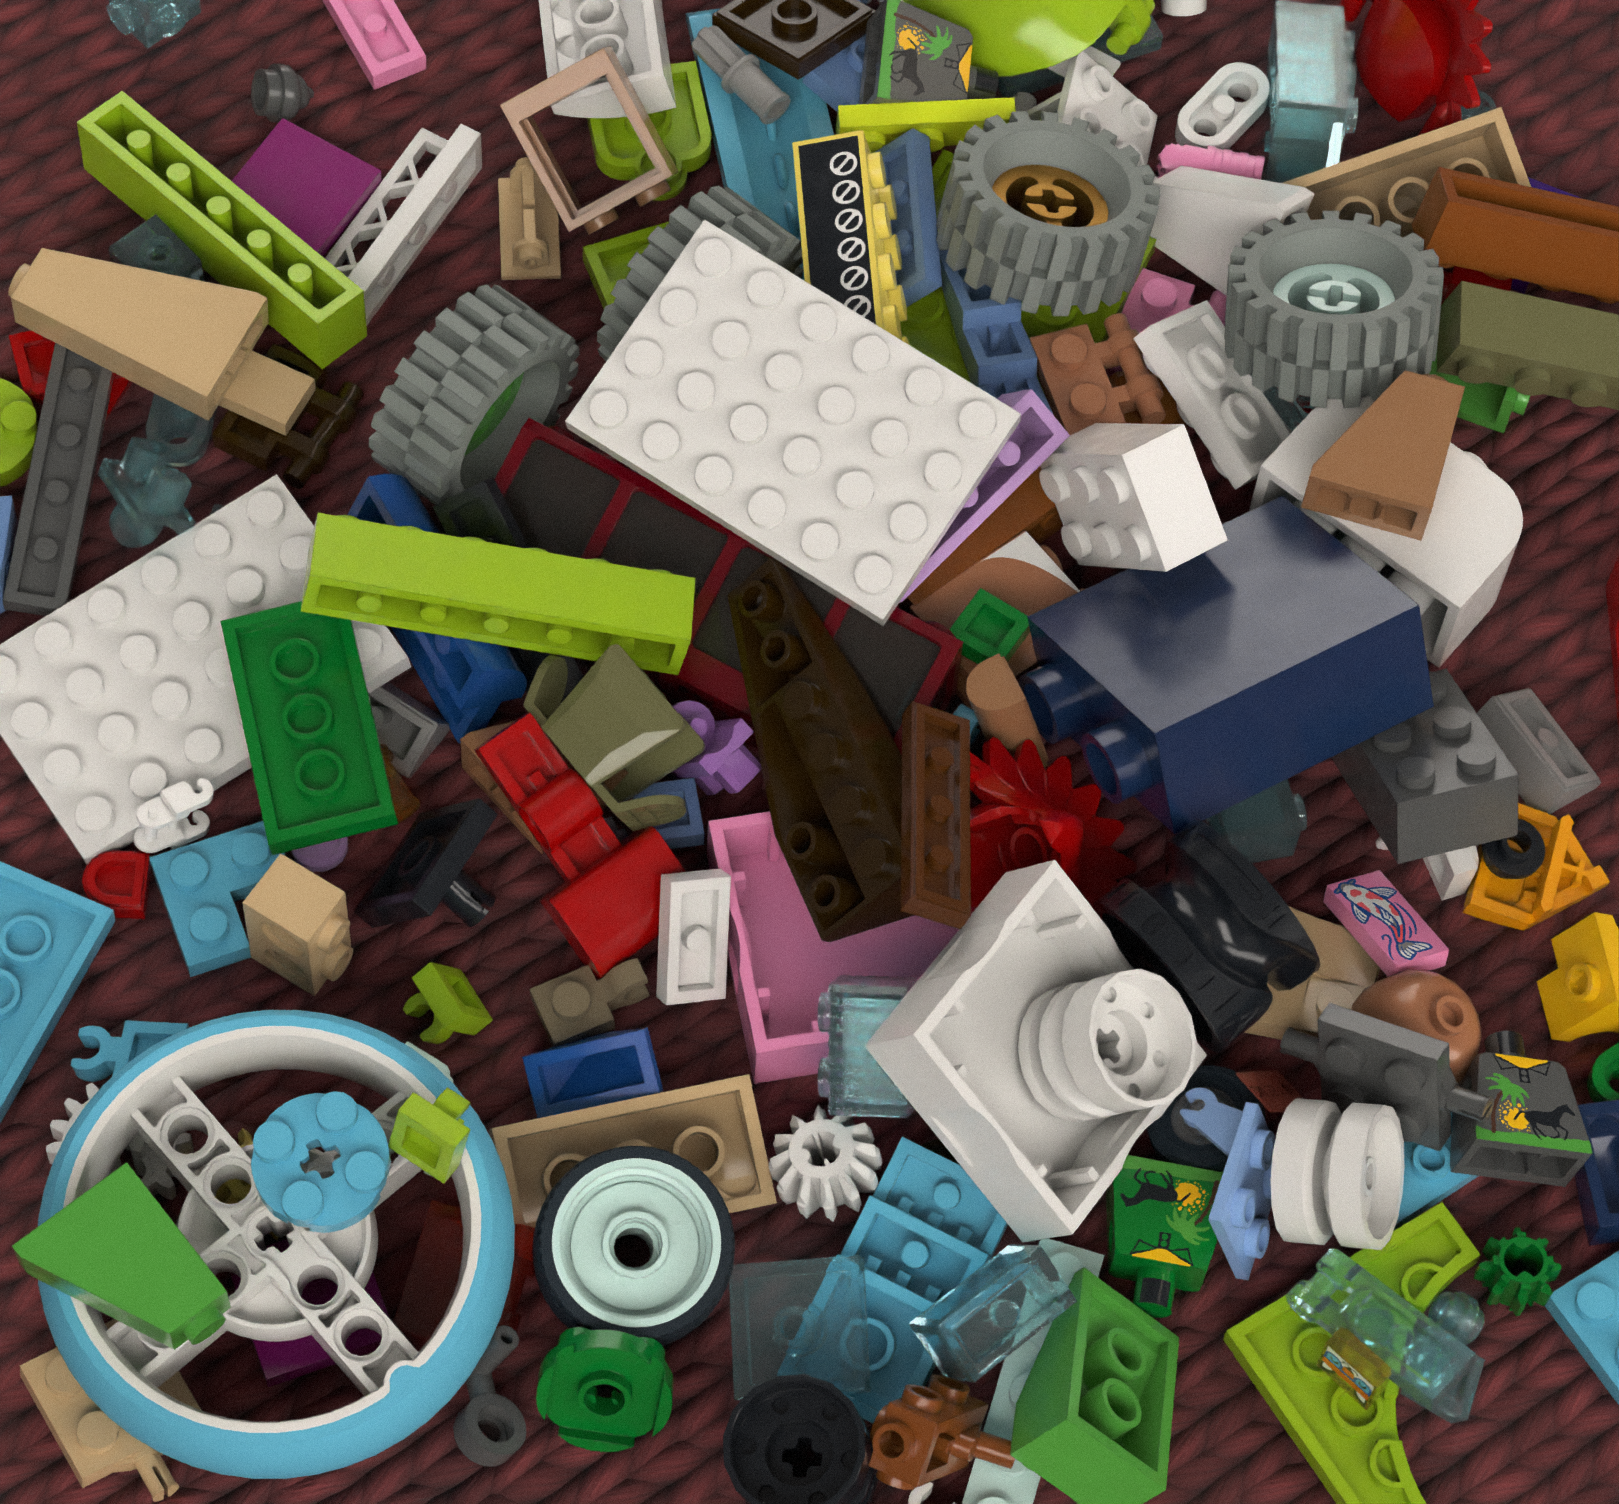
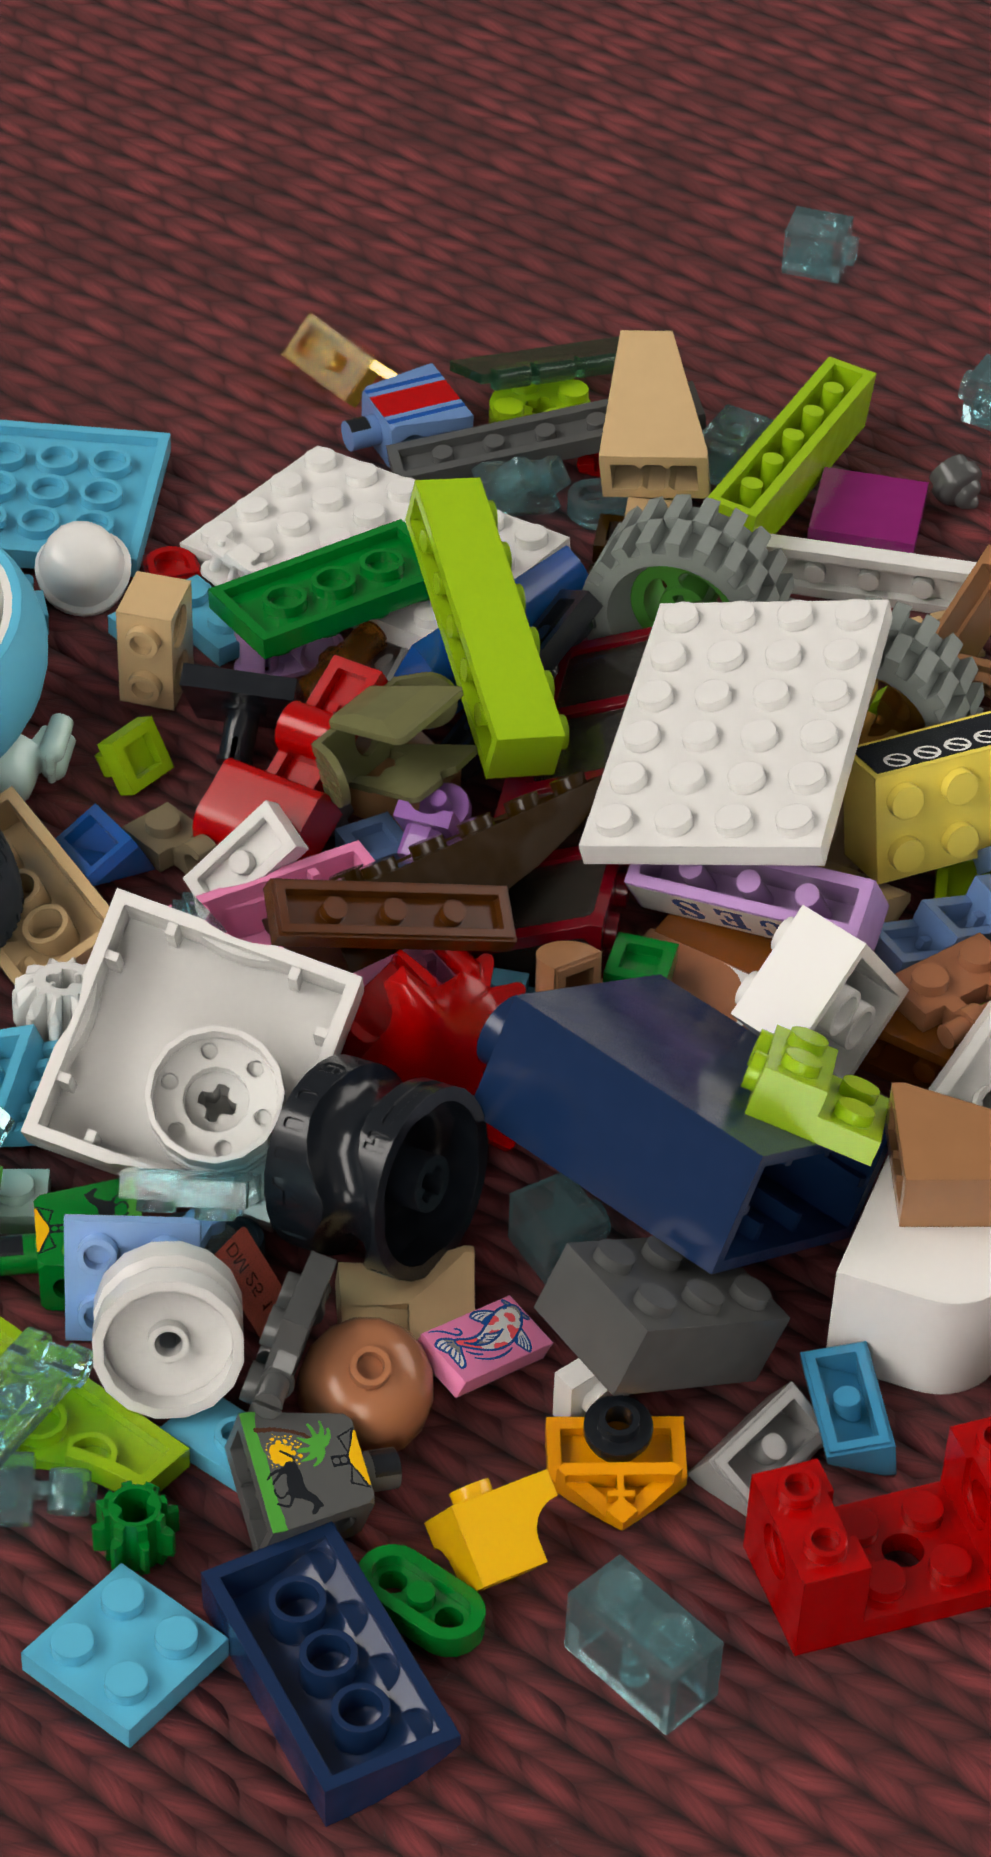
camera: 75 degrees right, 20 degrees down
(103, 968) = (83, 569): none -> white helmet
(1225, 1077) = (211, 1193): none -> clear light blue plate
(1299, 543) = (798, 1093): none -> lime plate
(1522, 663) = (850, 1408): none -> dark azure slope

